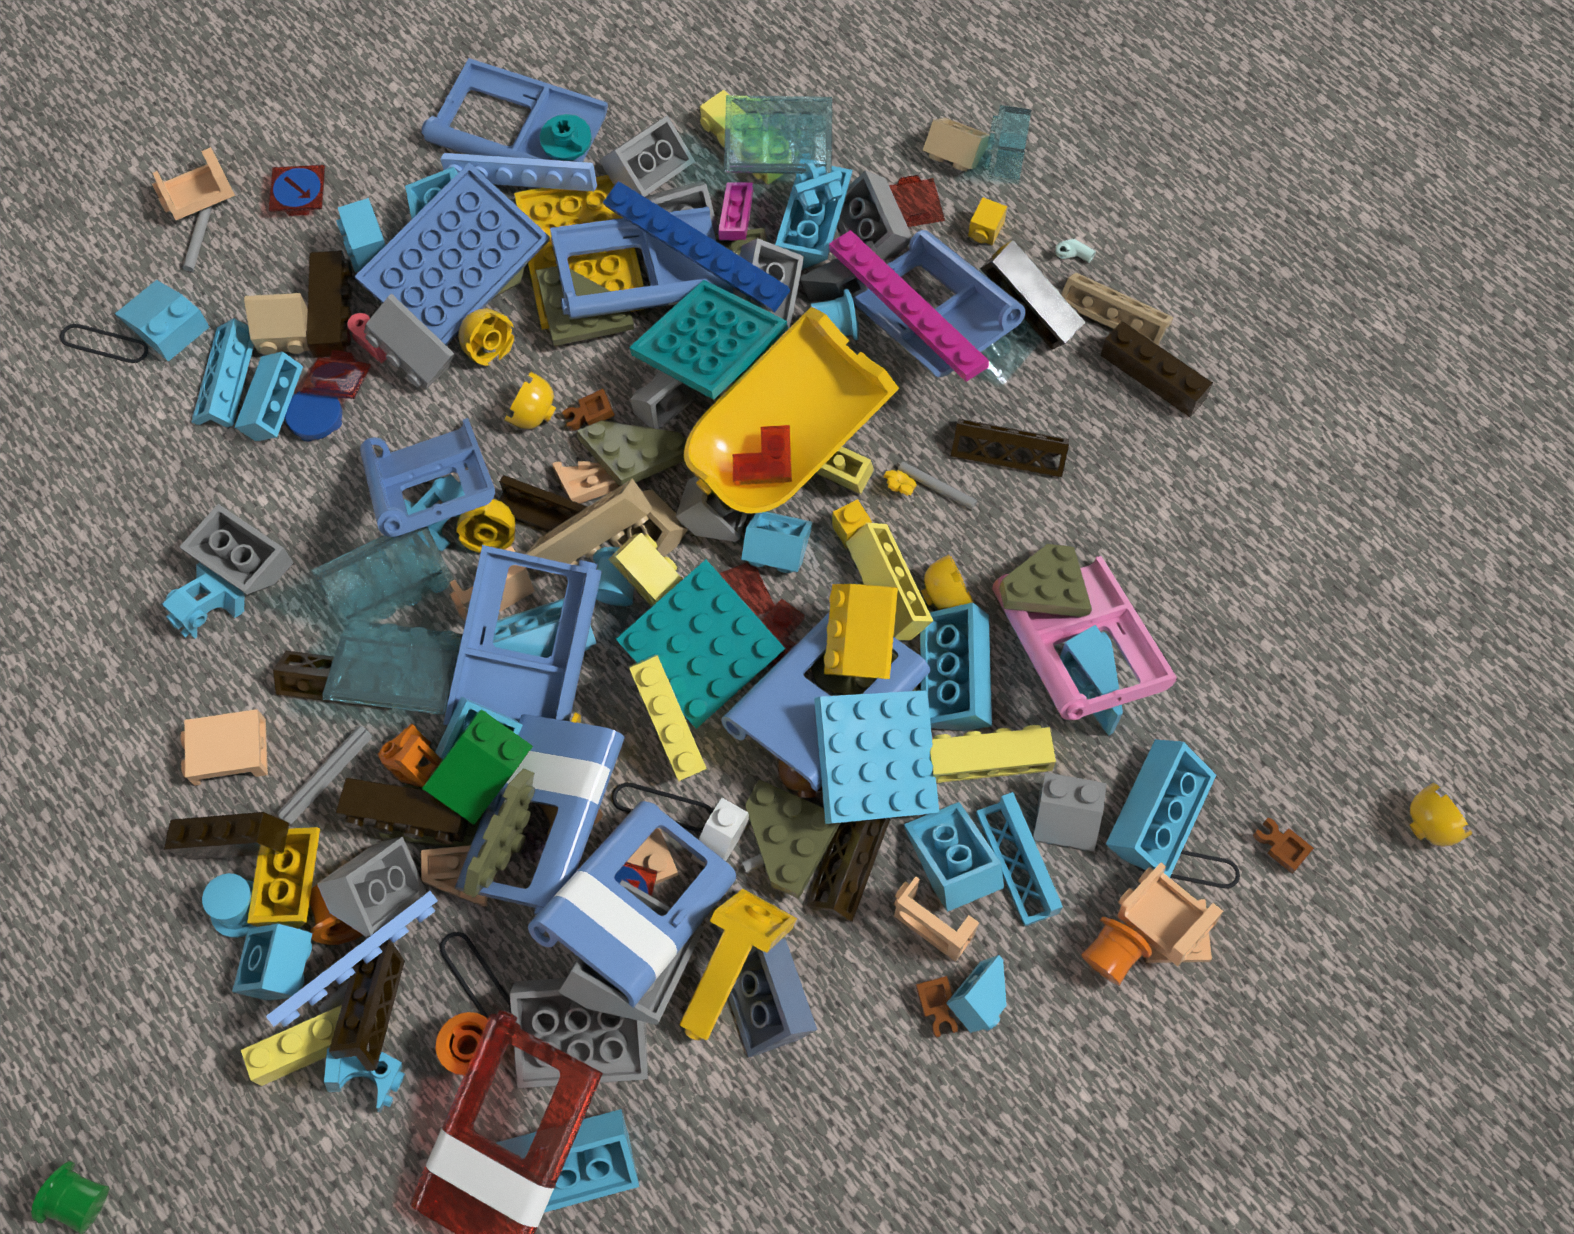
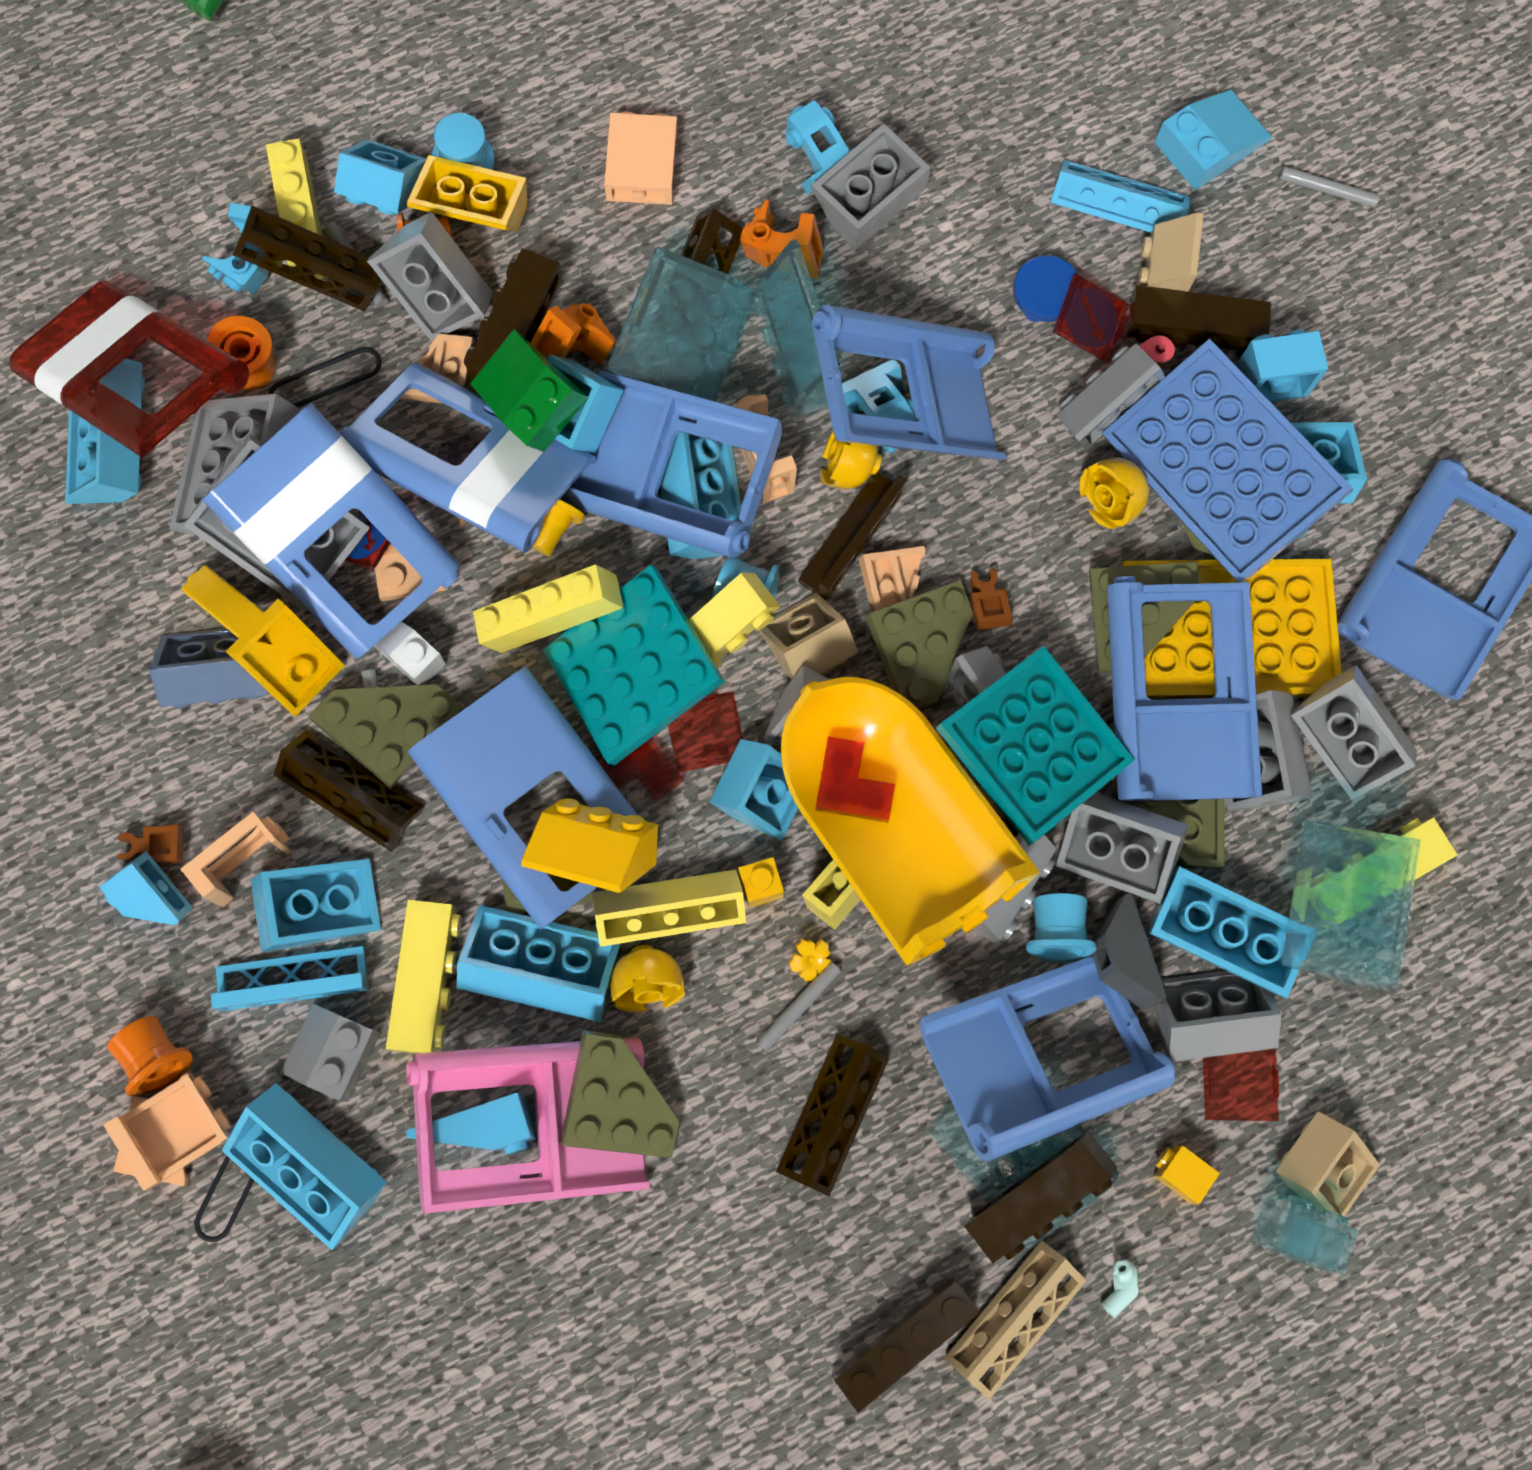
camera: 95 degrees right, 10 degrees up
(100, 352) = (1183, 64): black piece -> none
(194, 189) = (1397, 184): light nougat panel -> none
(227, 836) = (525, 142): dark brown brick -> none
(268, 396) = (1074, 239): medium azure brick -> none
(297, 189) = (1379, 302): piece -> none
(305, 597) = (765, 245): none -> orange tile
(324, 775) = (589, 255): light grey axle -> none
(343, 968) = (347, 236): light blue plate -> none
(502, 835) = (431, 398): olive plate -> none
(527, 171) = (1358, 567): light blue plate -> none
(532, 404) = (1006, 532): yellow cylinder -> none
(565, 137) = (1408, 634): teal piece -> none
(594, 526) = (807, 563): tan slope -> none
(661, 793) = (476, 605): black piece -> none
(697, 247) = (1185, 759): blue plate -> none
(736, 211) = (1252, 833): dark pink plate -> none
(807, 190) = (1251, 922): medium azure hips -> none
(875, 756) = (437, 832): medium azure plate -> none
(909, 306) = (1039, 1013): dark pink plate -> none
(1286, 848) = (217, 1306): dark orange plate -> none

